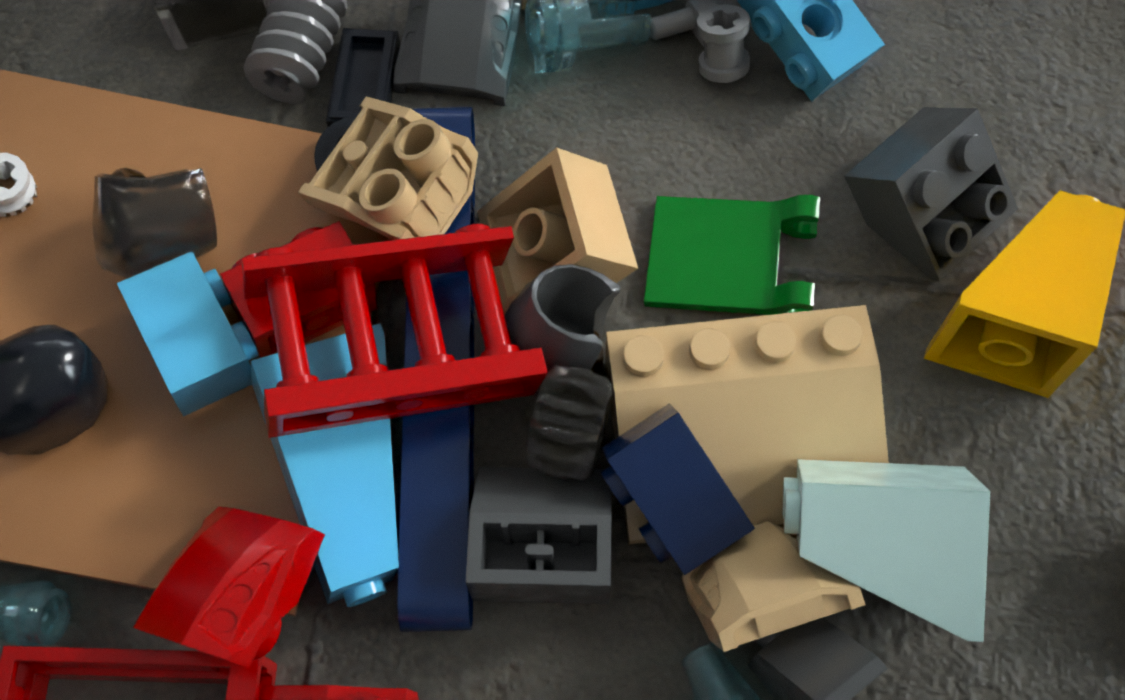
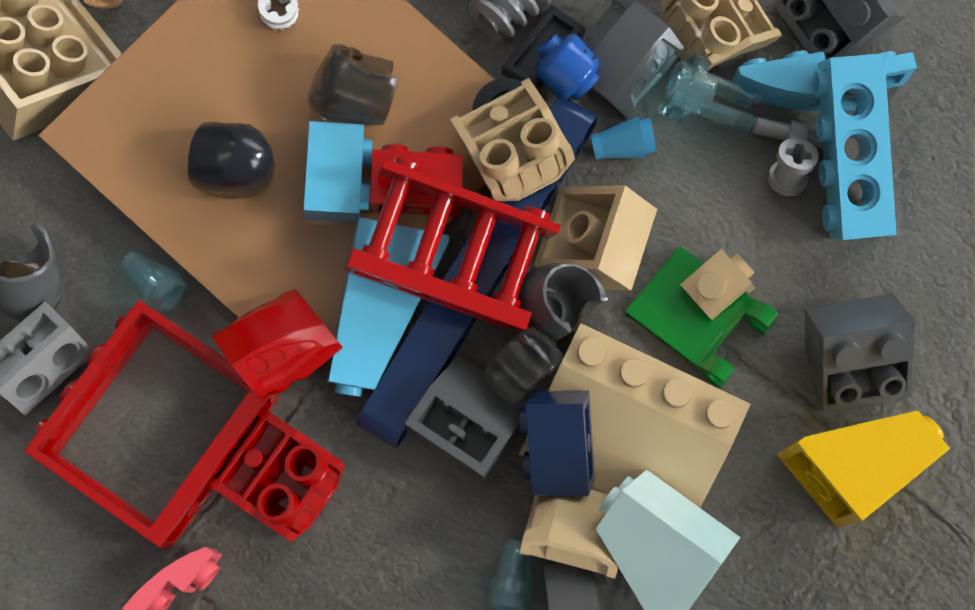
camera: 30 degrees right, 10 degrees up
(402, 69) = (567, 66): none -> blue head
(521, 117) = (626, 140): none -> dark azure cone
(730, 204) = (719, 283): none -> tan bracket

